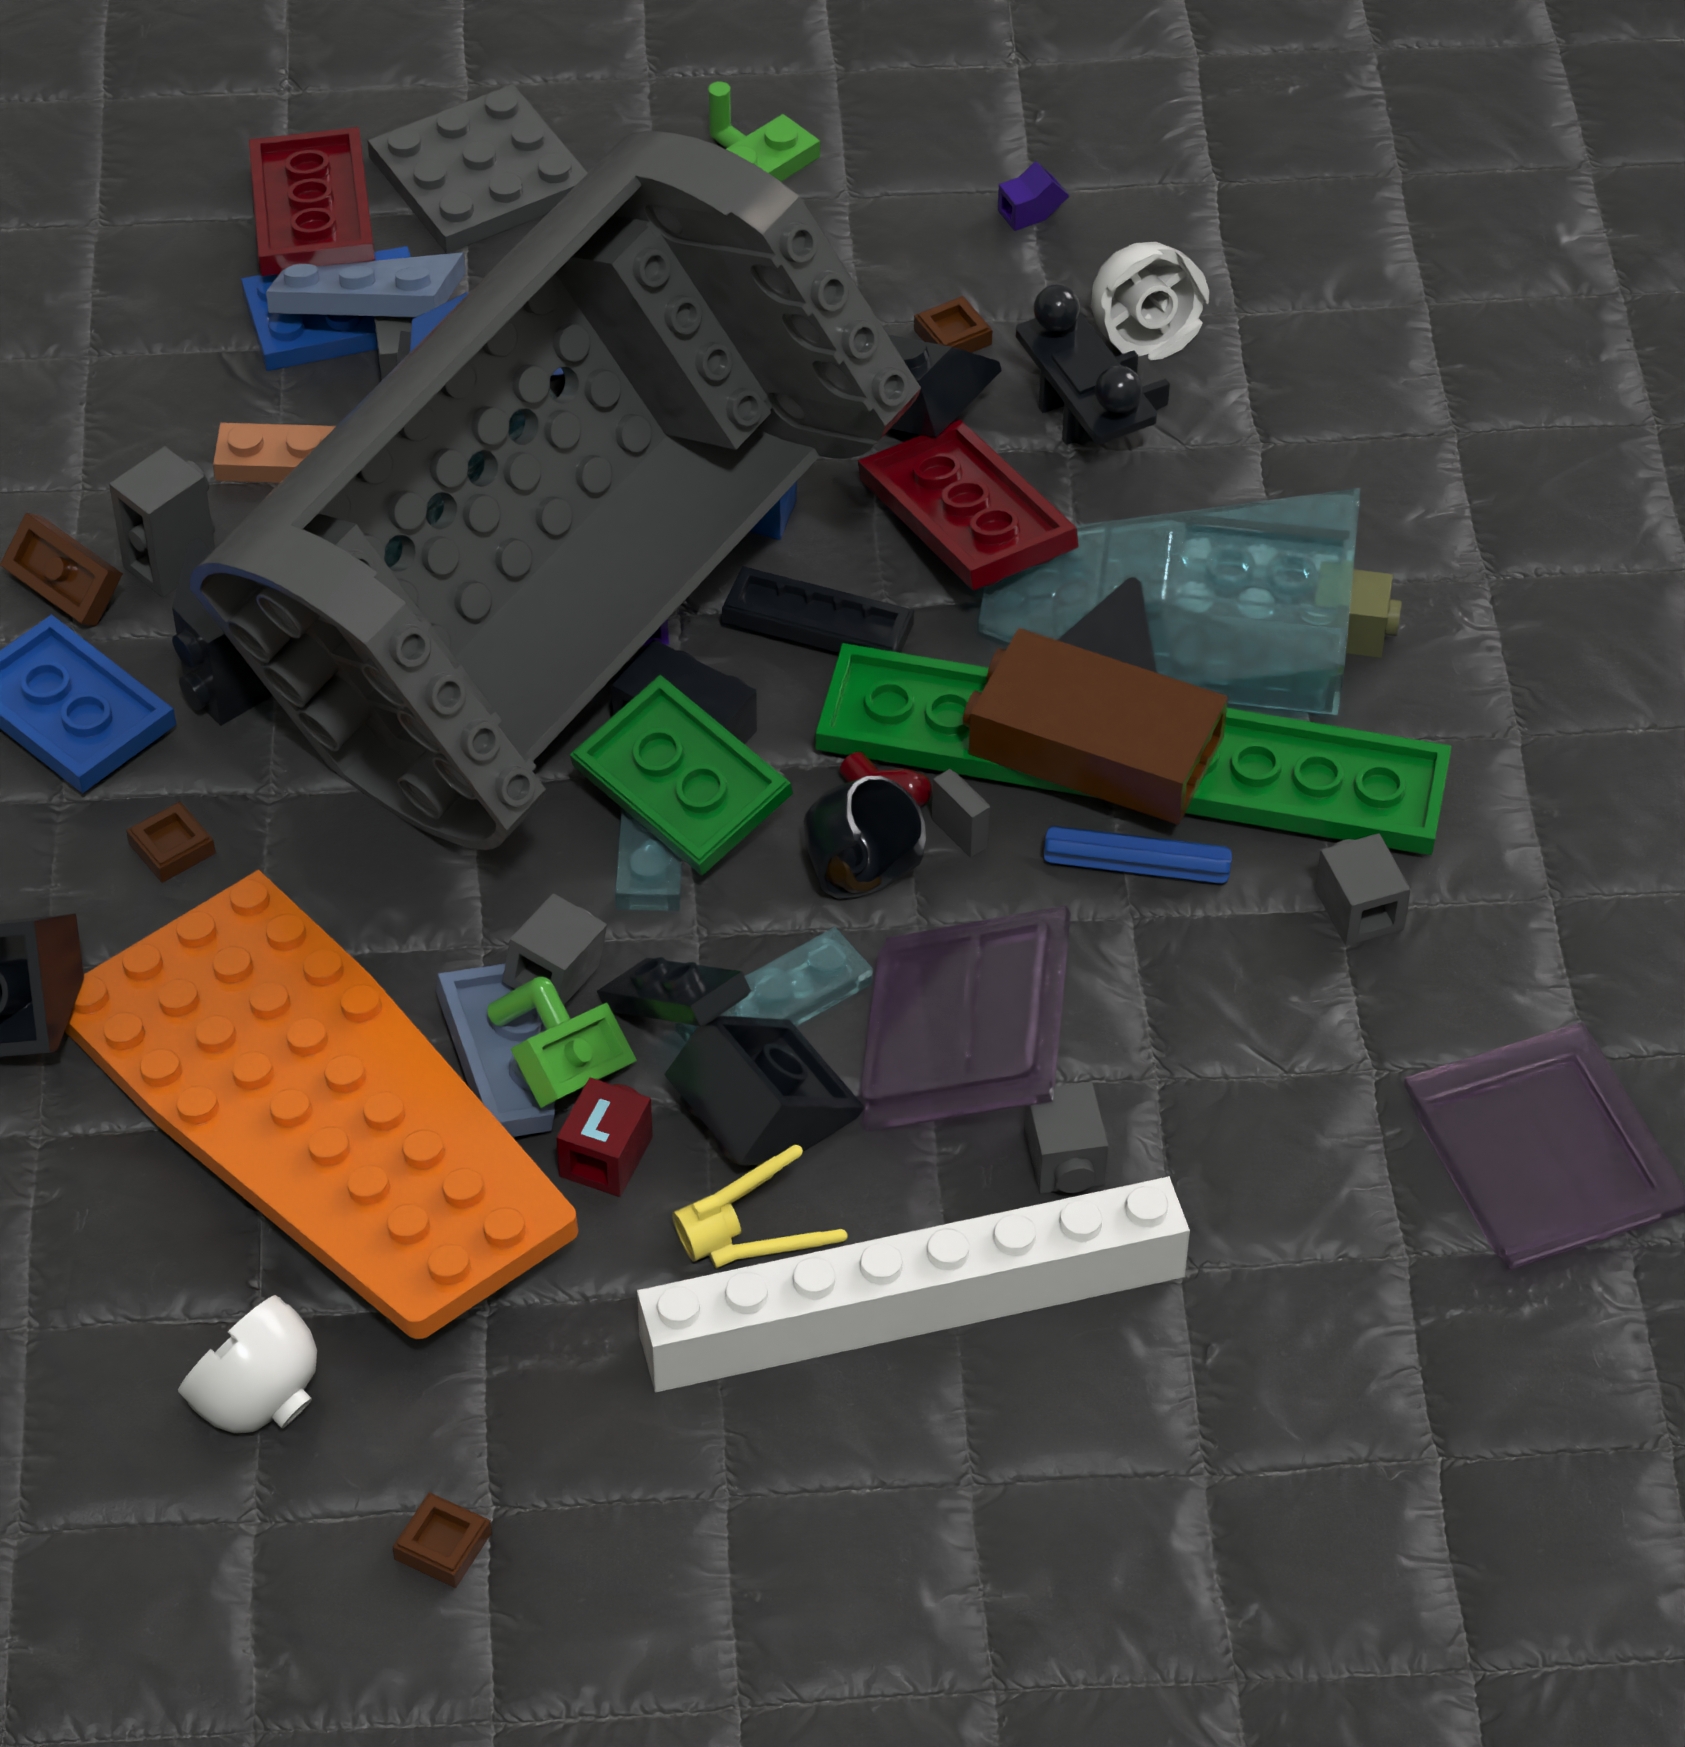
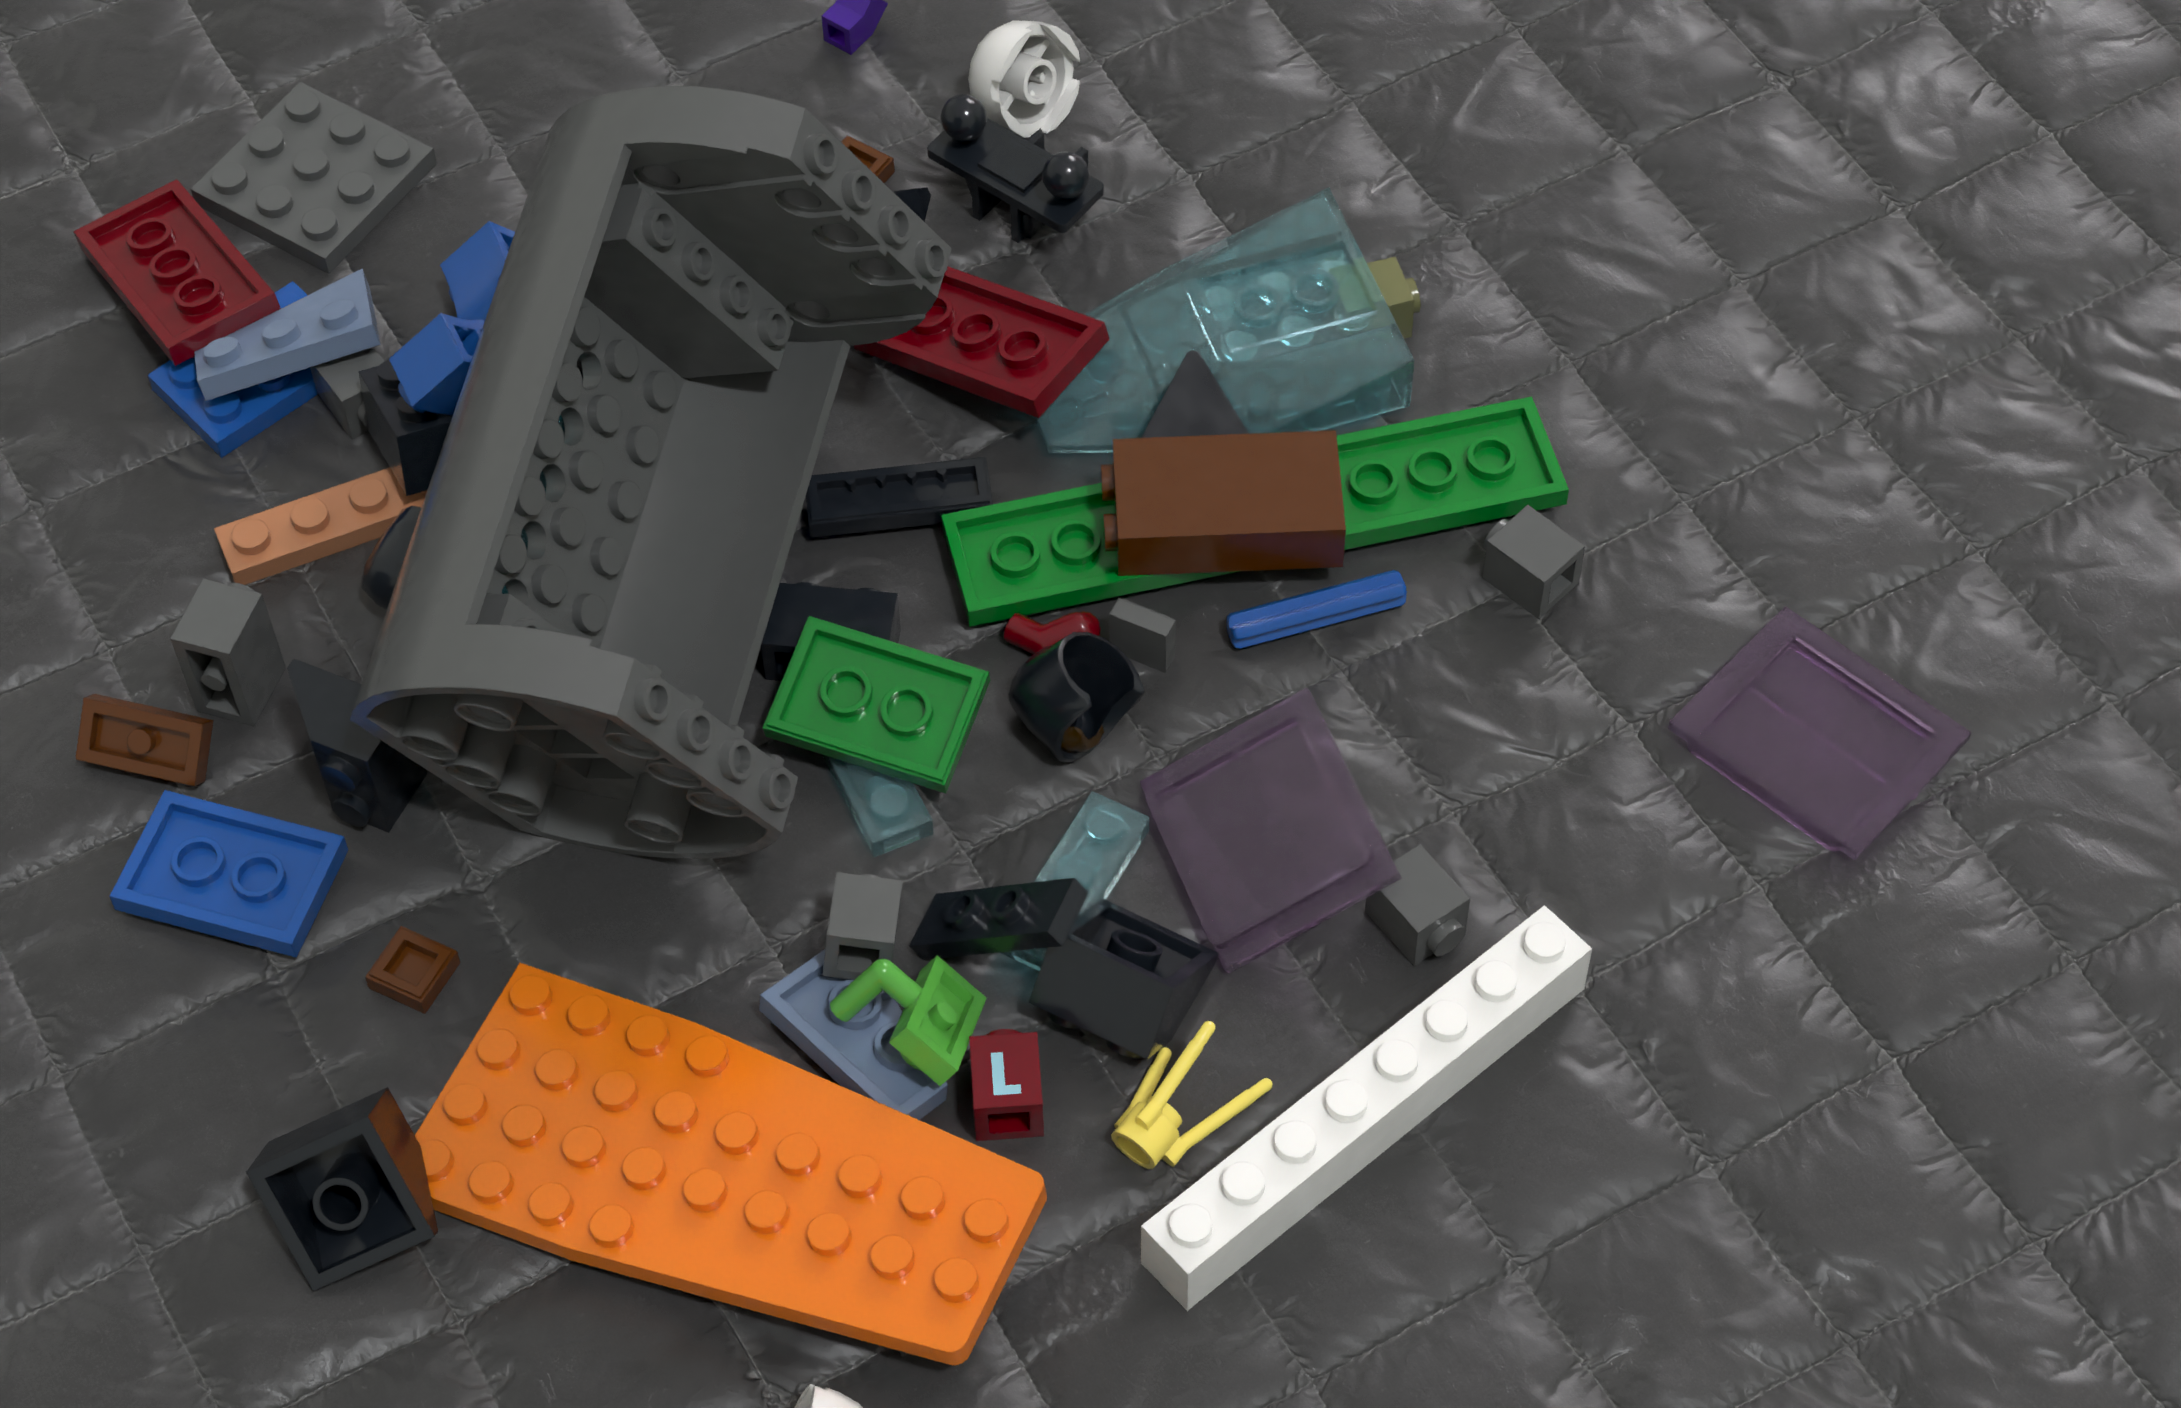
camera: 25 degrees left, 5 degrees up
(776, 147) = (577, 68): bright green plate -> none

